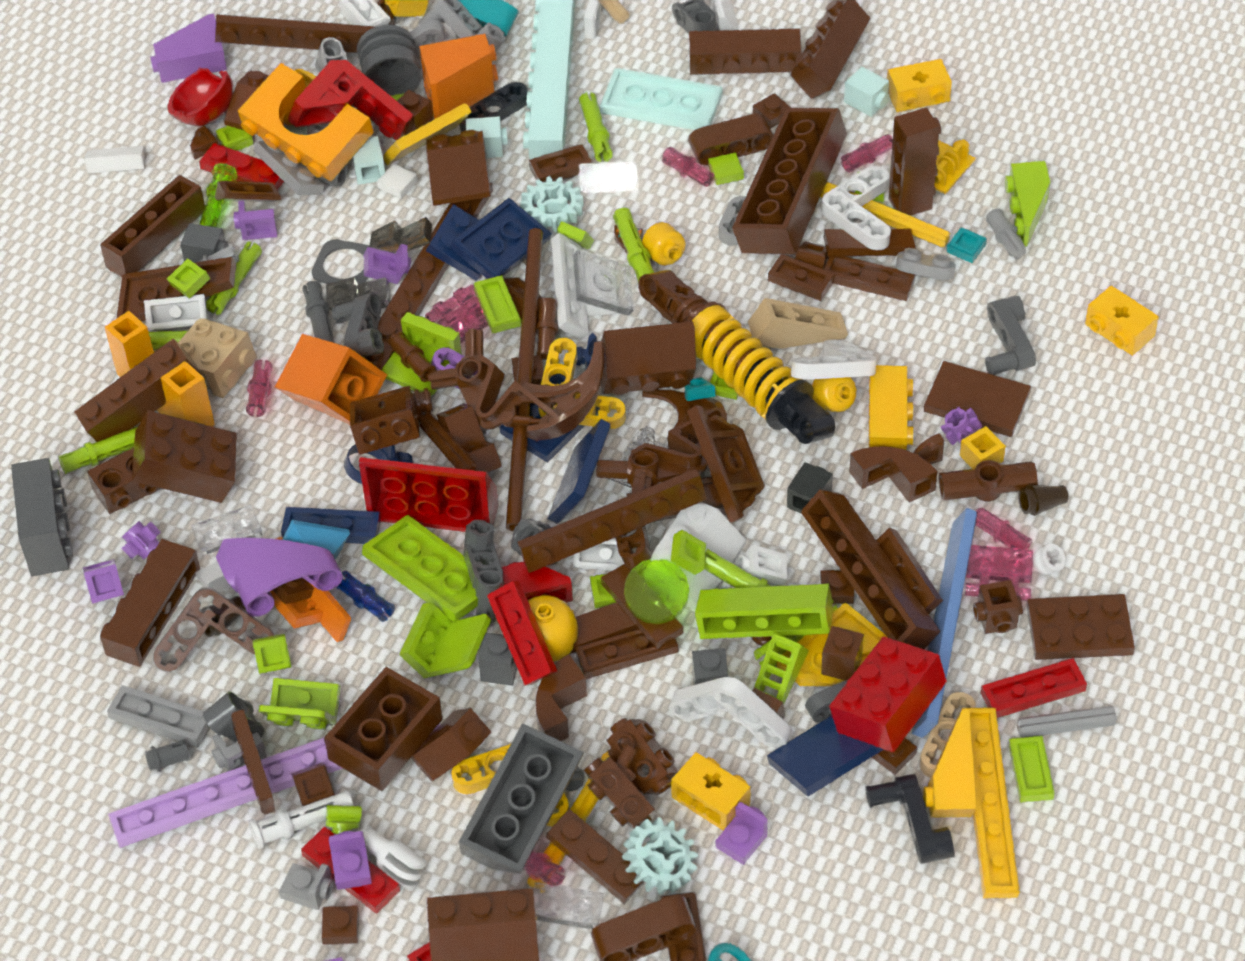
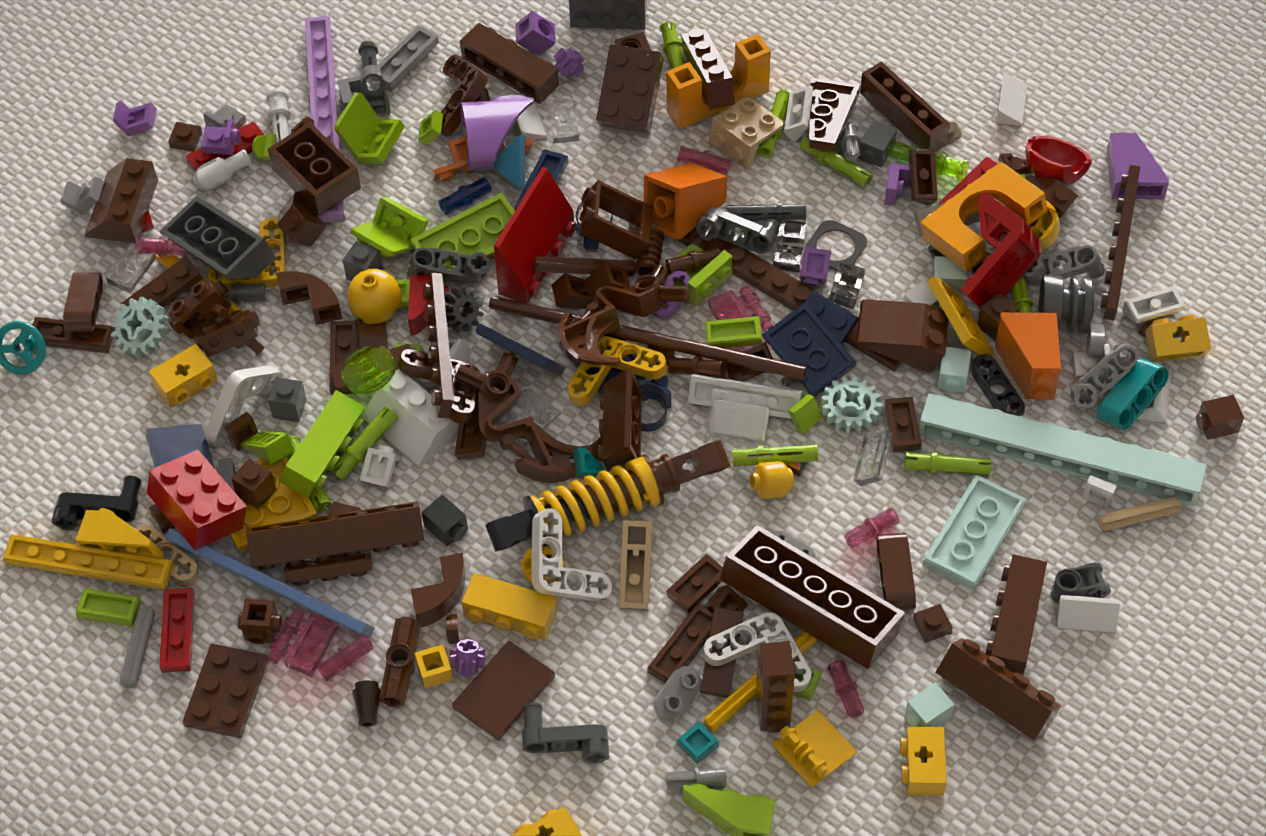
camera: 105 degrees right, 5 degrees up
(188, 278) = (818, 111): lime plate -> none
(253, 762) = (319, 88): reddish brown tile -> none
(522, 633) = (357, 264): red plate -> none
(688, 552) = (388, 391): lime plate -> none
(726, 168) = (862, 562): lime tile -> none
(728, 460) = (482, 454): reddish brown wing -> none
(743, 833) = (140, 391): medium lavender bracket -> none
(1056, 556) = (291, 687): white bush -> none

